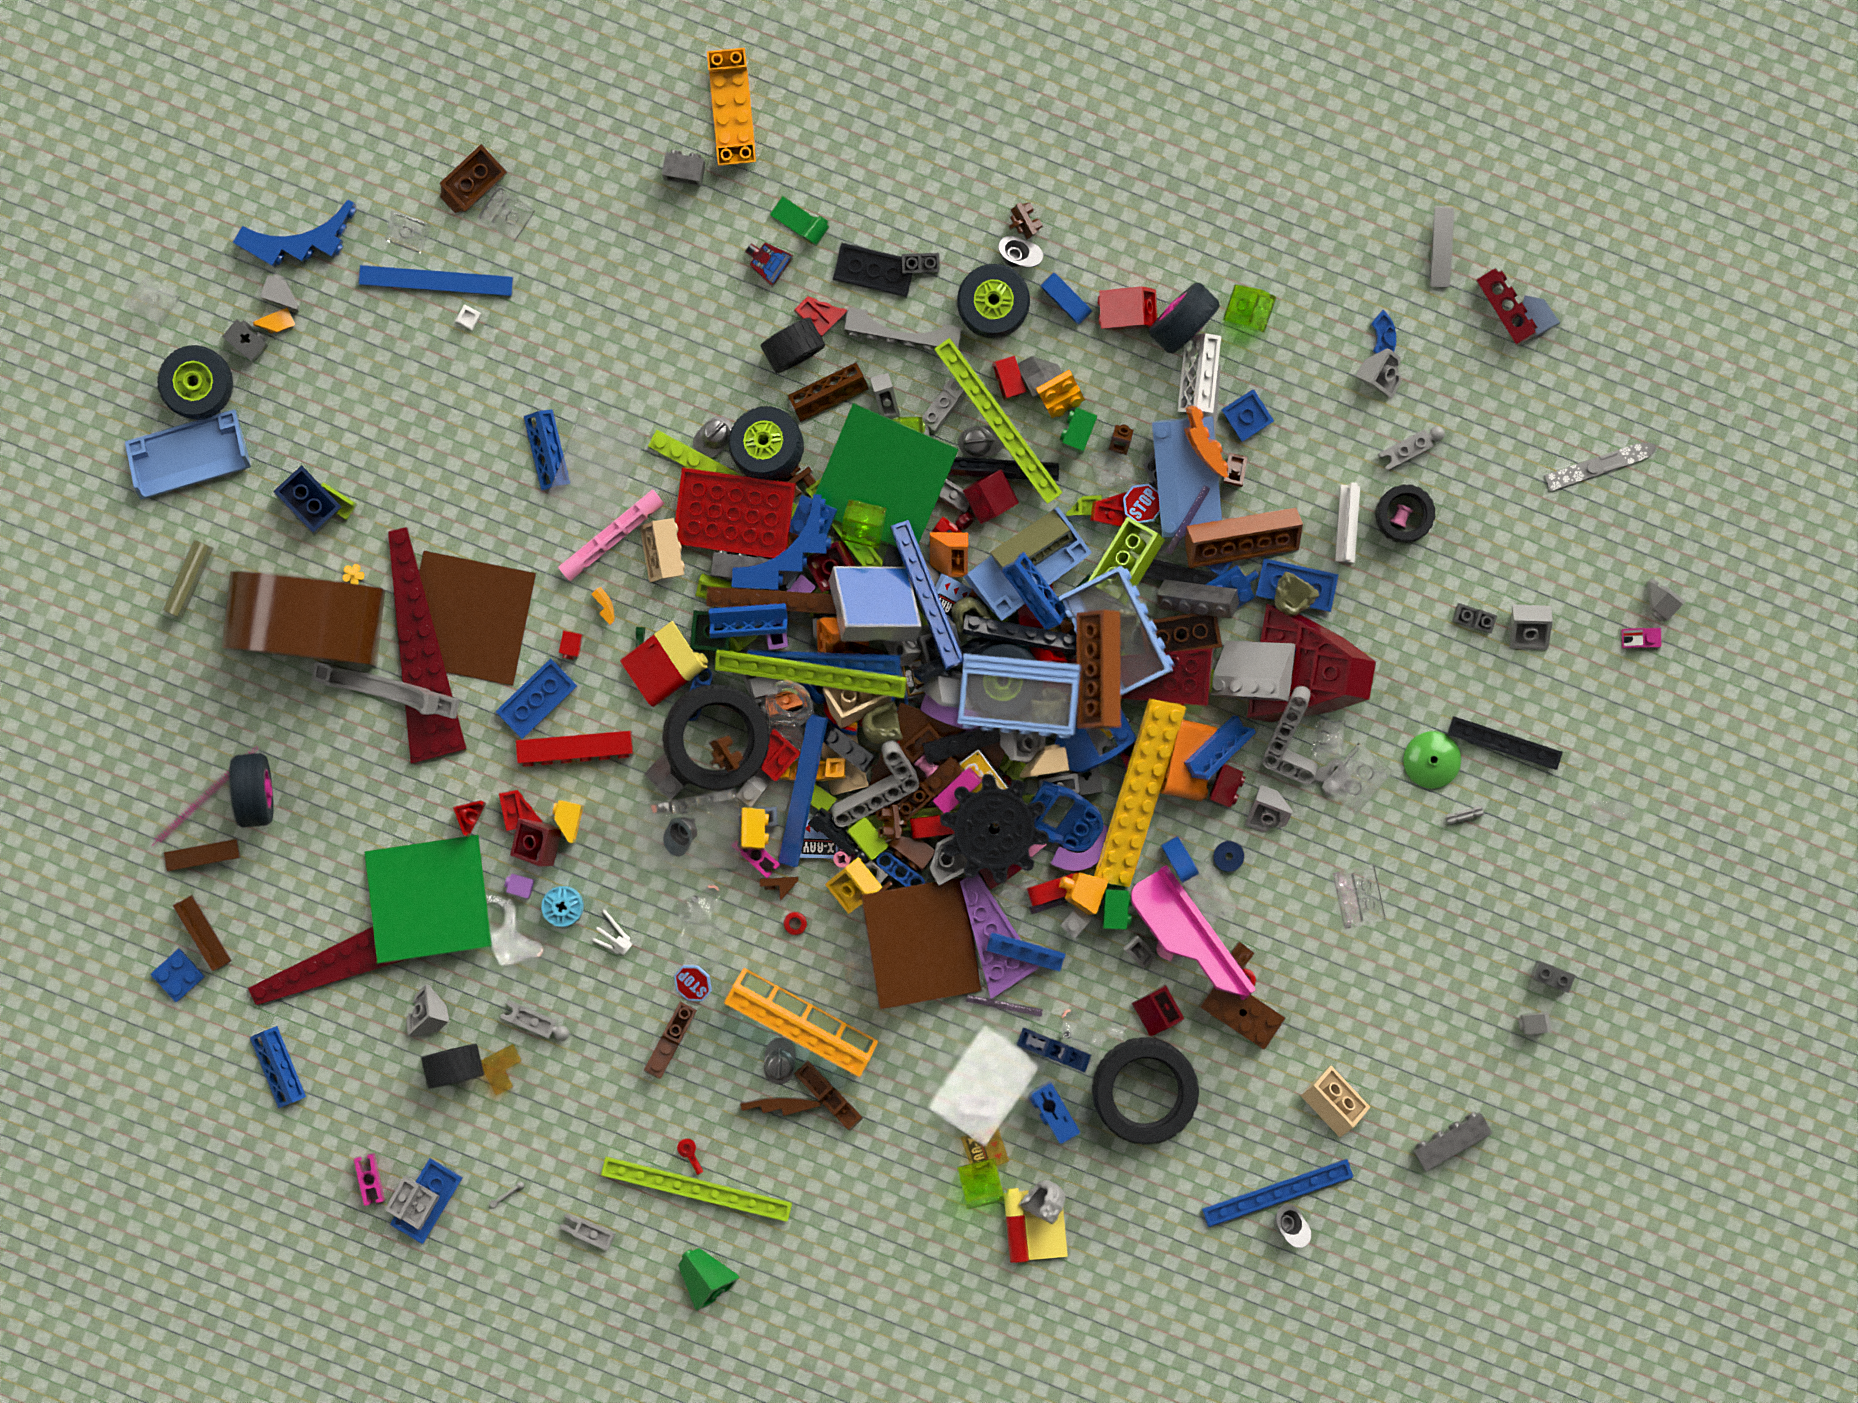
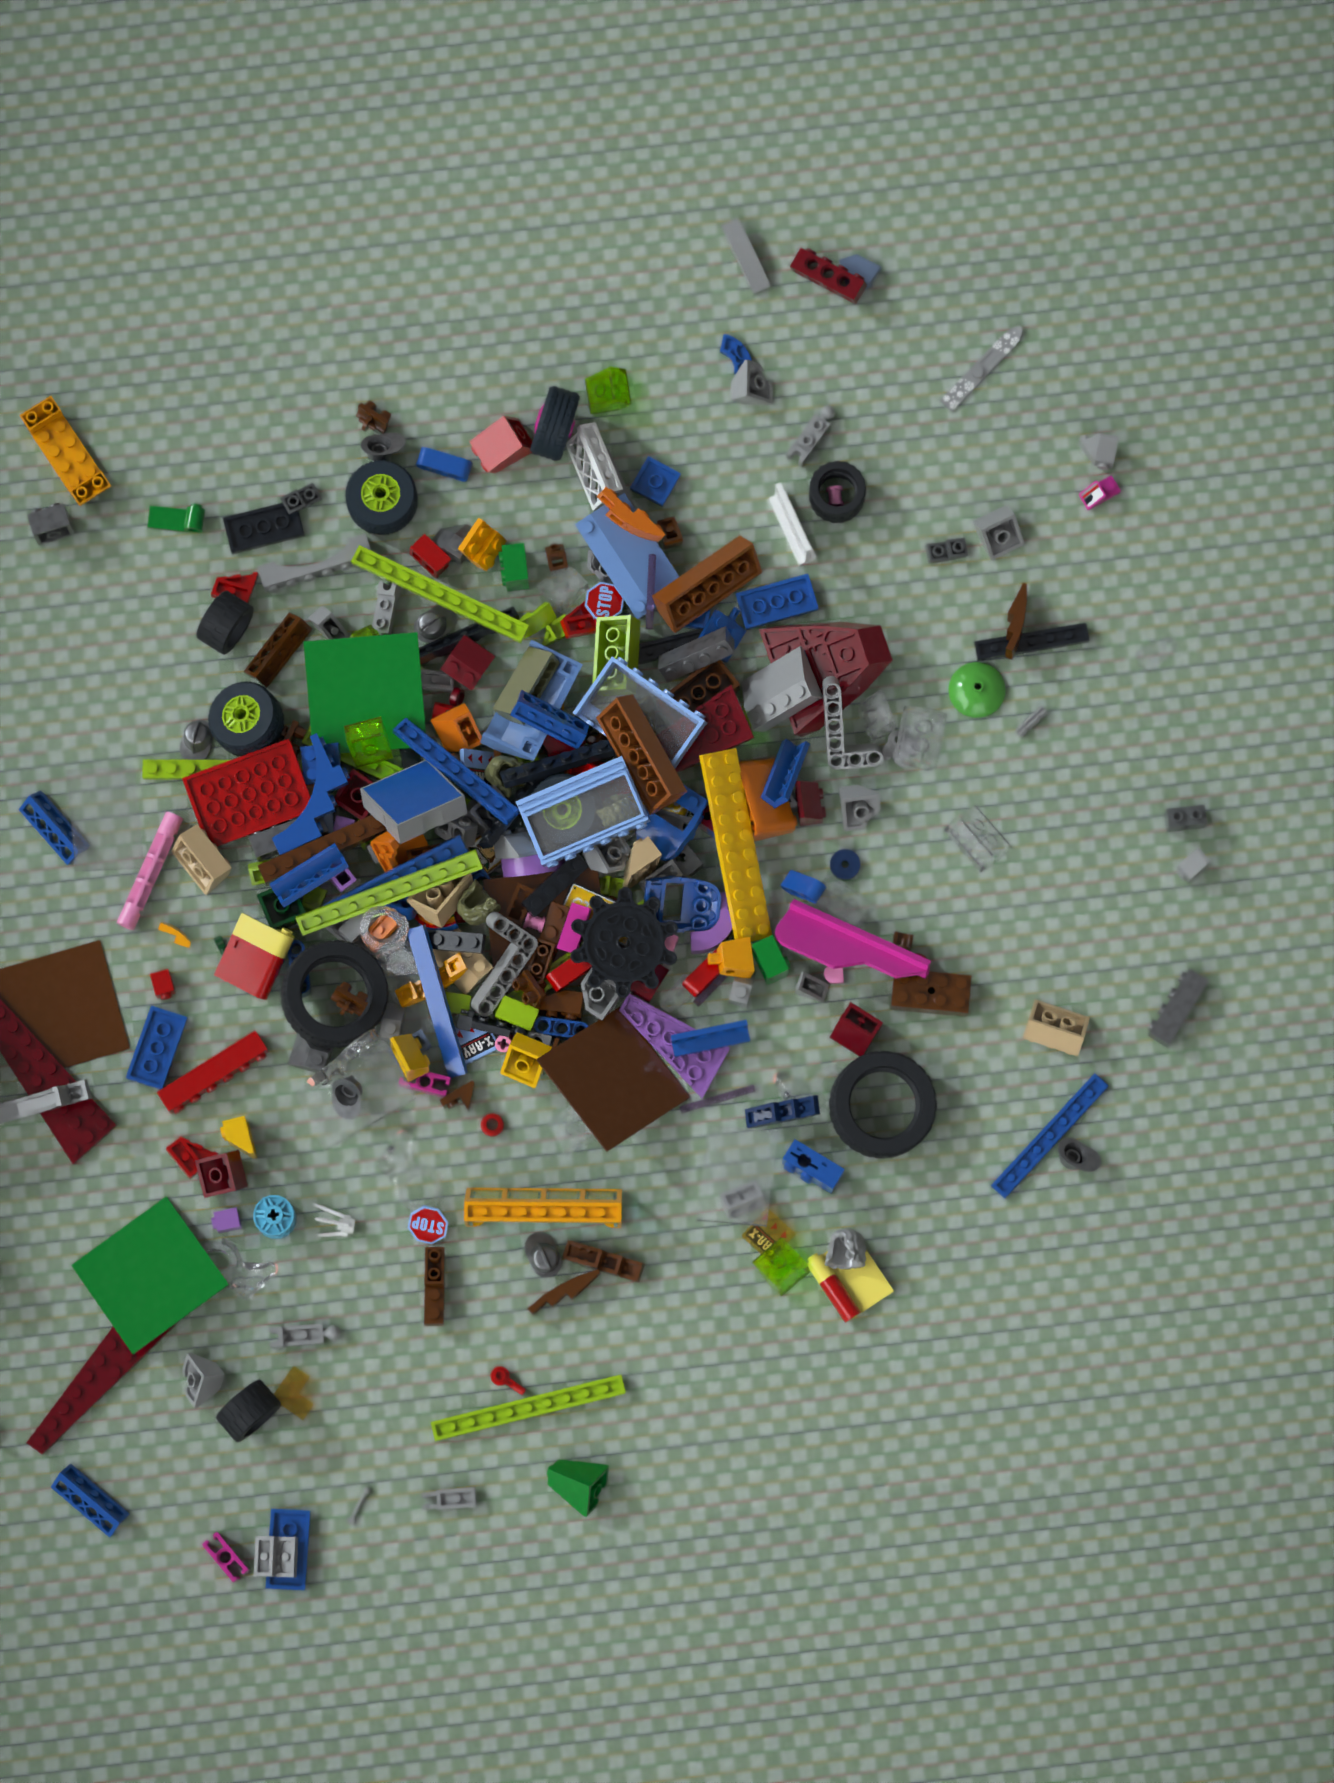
camera: 20 degrees left, 10 degrees down
(468, 815) = (148, 1180): red slope -> none
(768, 261) = (167, 566): torso -> none
(779, 756) = (400, 981): red wing -> none
(1075, 488) = (538, 619): none -> lime slope
(1294, 594) = (777, 607): olive hair -> none
(1504, 714) = (1016, 618): none -> reddish brown slope

